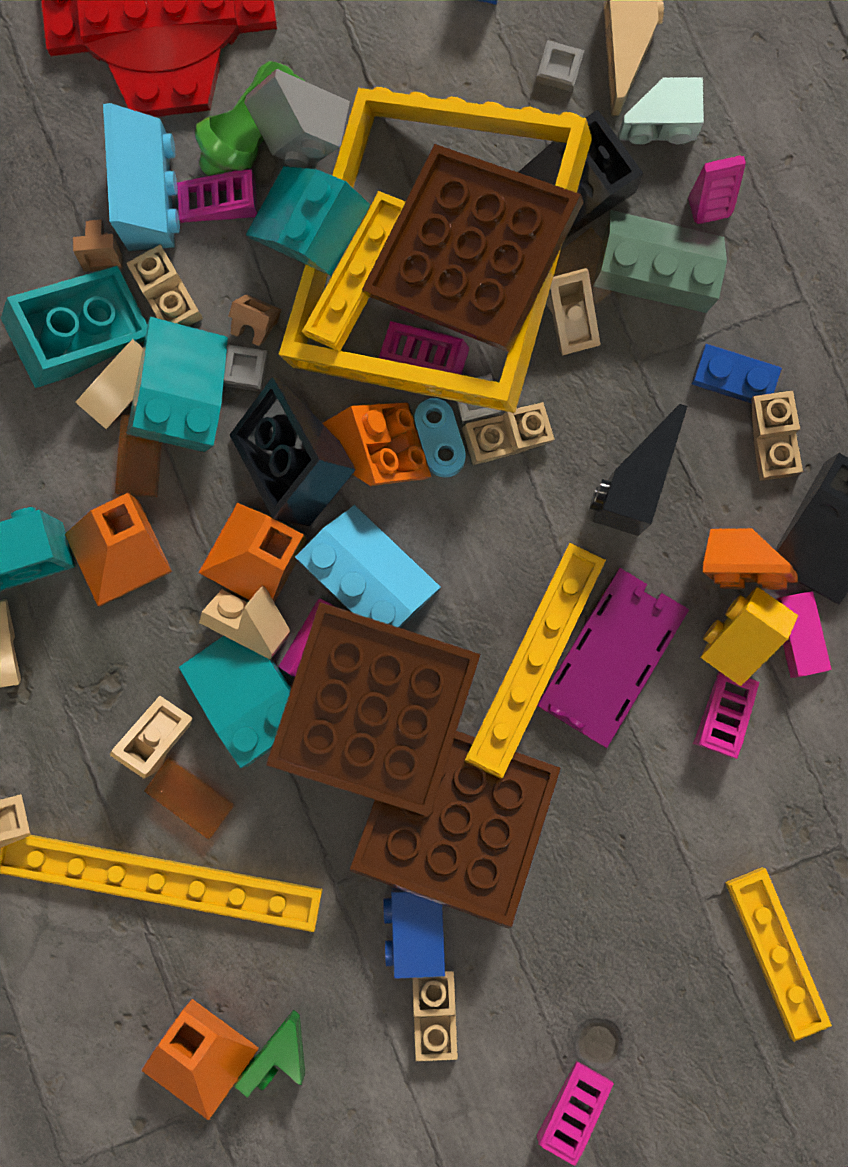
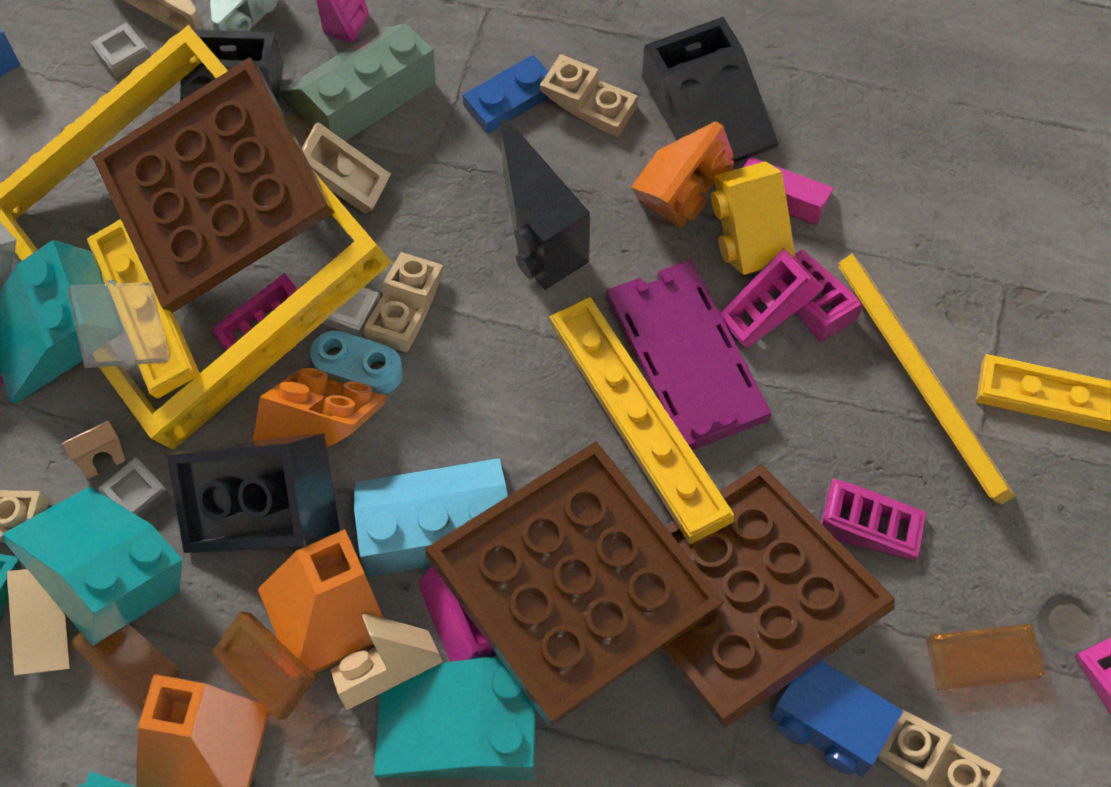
camera: 55 degrees left, 20 degrees down
(192, 547) = (263, 665): none -> clear orange tile
(324, 274) = (118, 324): none -> clear piece
(531, 1002) = (984, 656): none -> clear orange tile
(564, 836) = (859, 499): none -> dark pink slope
(711, 838) = (926, 381): none -> yellow tile
(716, 680) = (790, 301): none -> dark pink slope

